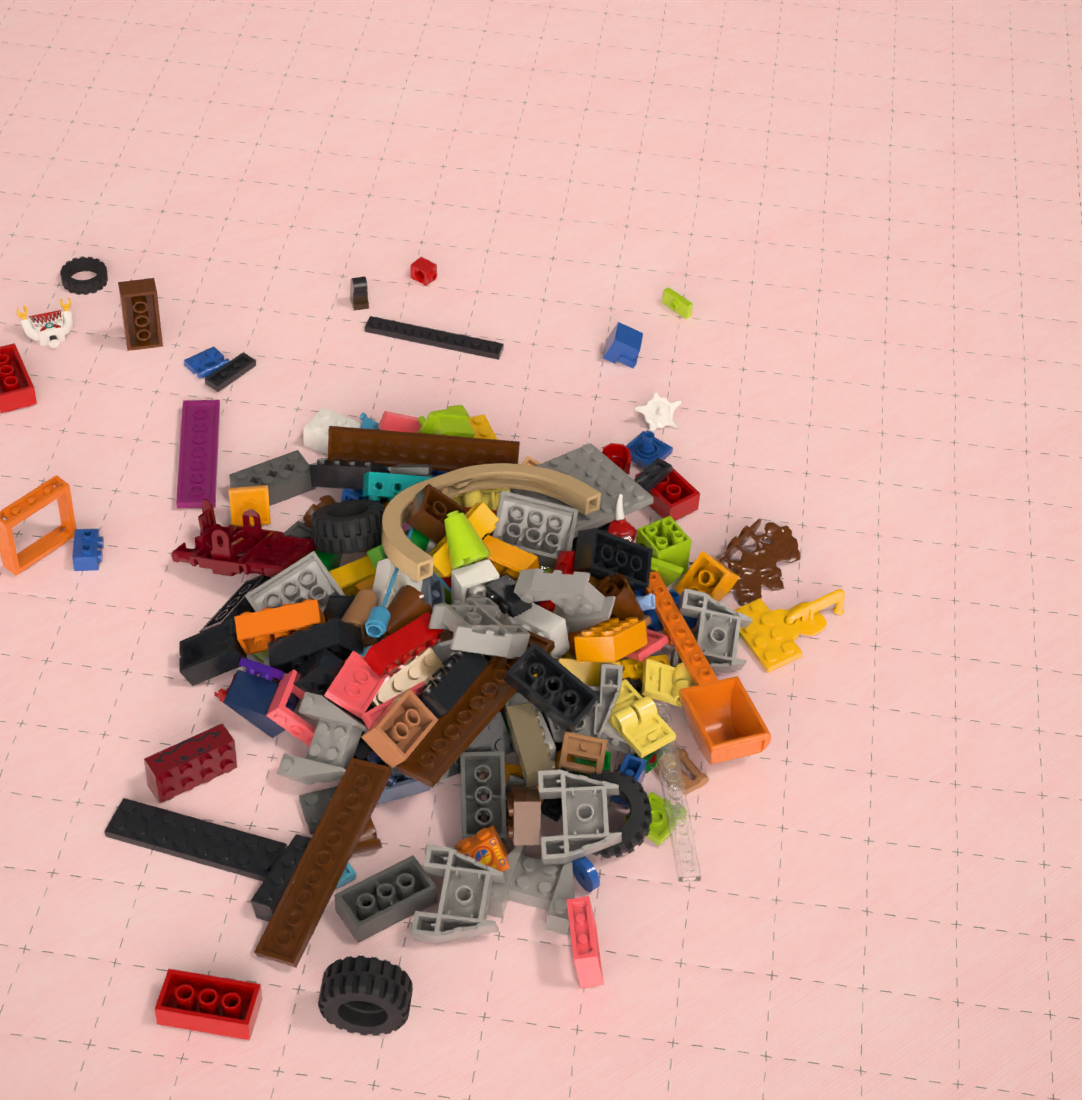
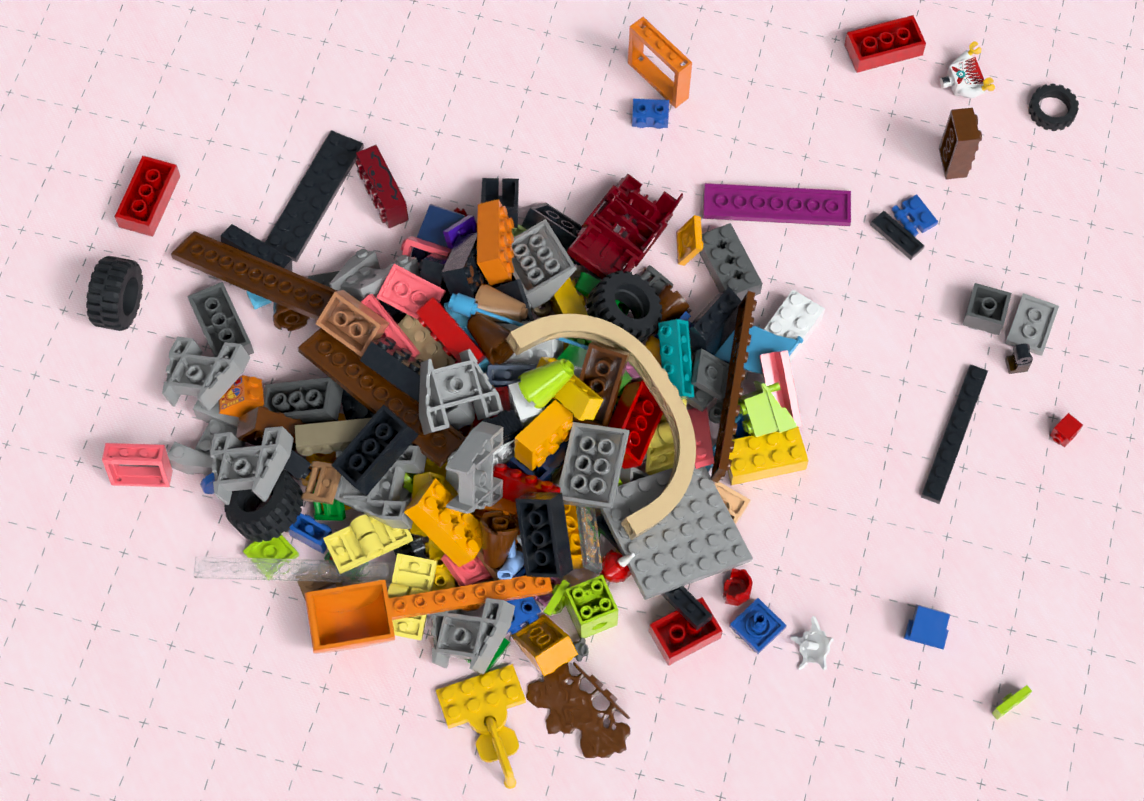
camera: 100 degrees right, 20 degrees up
(310, 312) = (987, 309): none -> dark grey brick
(320, 290) = (1032, 323): none -> light grey plate

